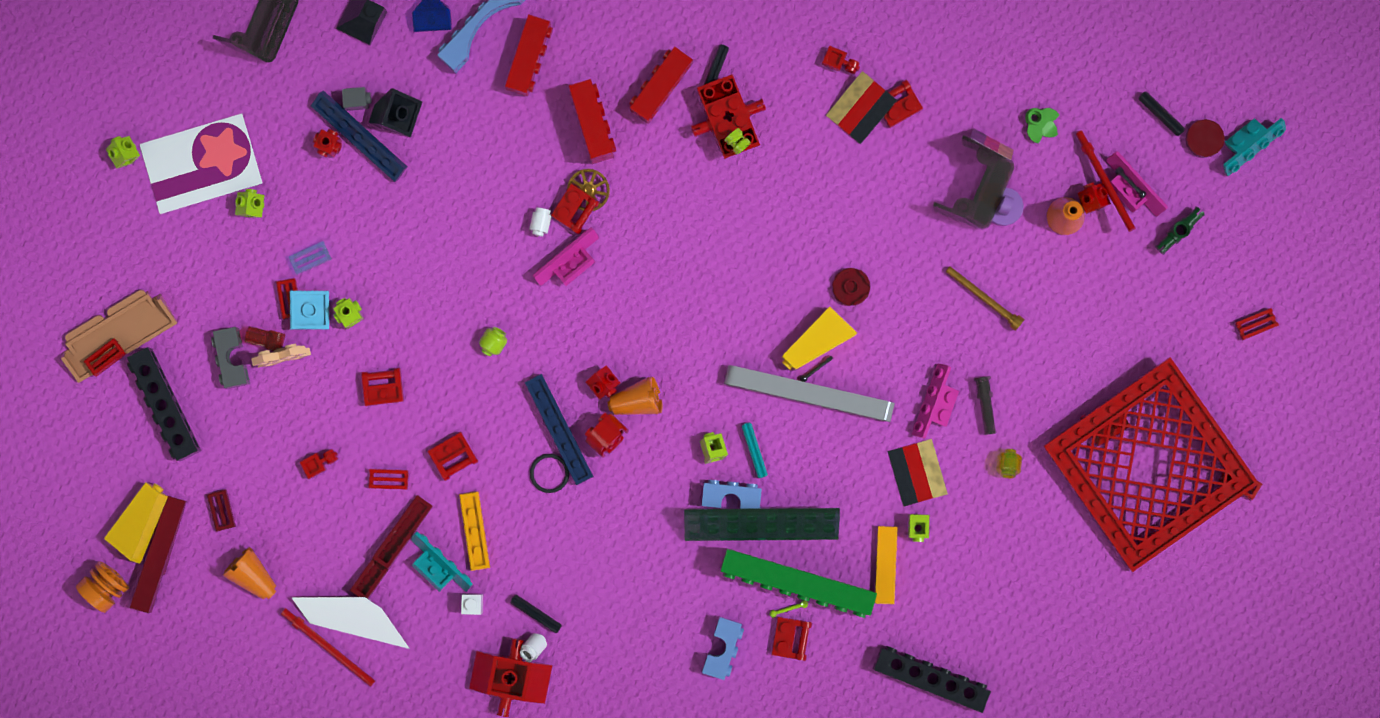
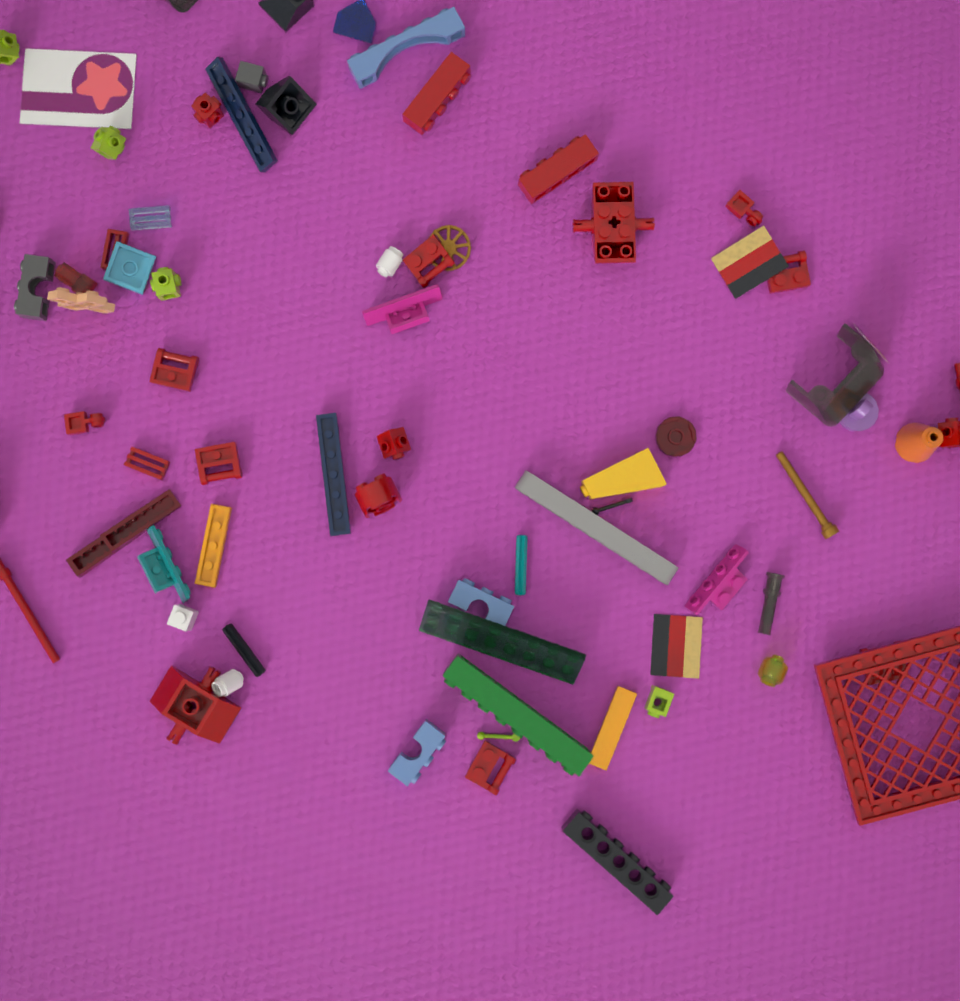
camera: 20 degrees right, 0 degrees up
(351, 616) = (59, 586): white sticker -> none
(493, 341) = (299, 363): lime head -> none
(534, 481) = (291, 509): black piece -> none
(591, 121) = (477, 172): red brick -> none
(637, 399) = (422, 472): orange cone -> none
(717, 63) = (622, 167): black axle -> none
(719, 447) = (486, 542): lime brick -> none
(734, 140) = (615, 248): lime wheel -> none
(1043, 126) = (924, 345): bright green plate -> none

